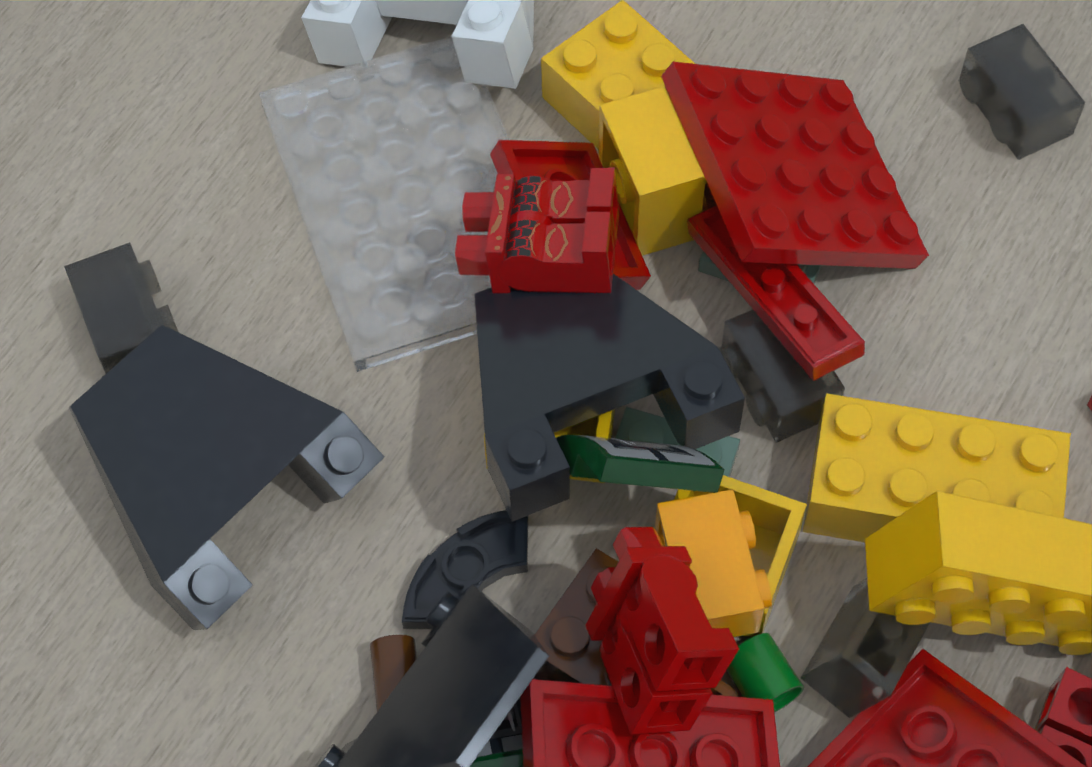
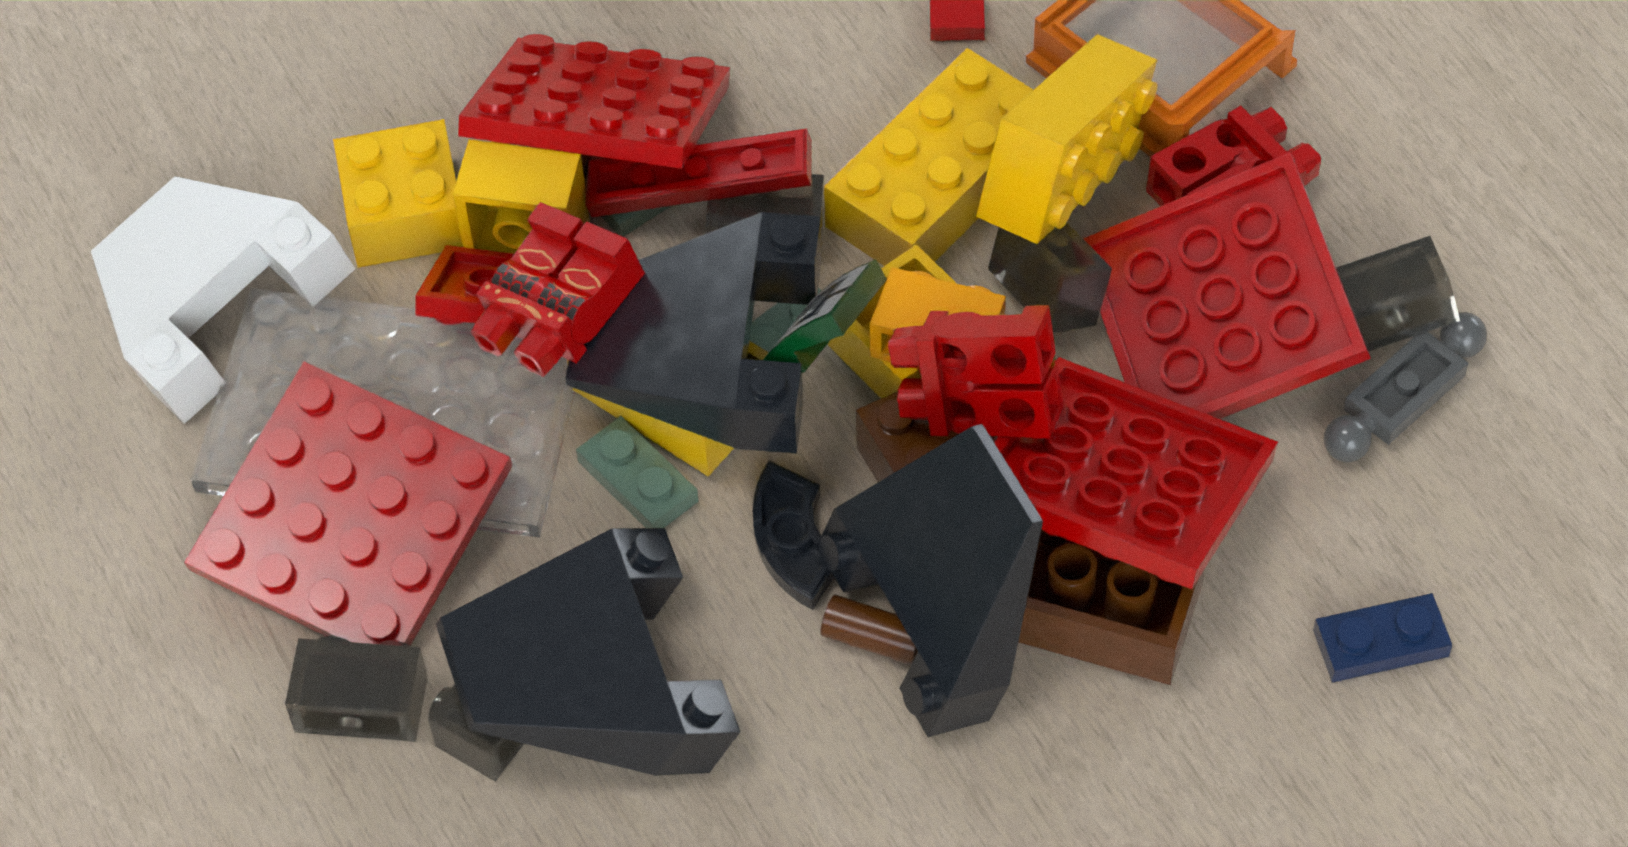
camera: 60 degrees left, 5 degrees down
(280, 217) = (348, 512): none -> plate
(450, 416) = (637, 475): none -> sand green plate

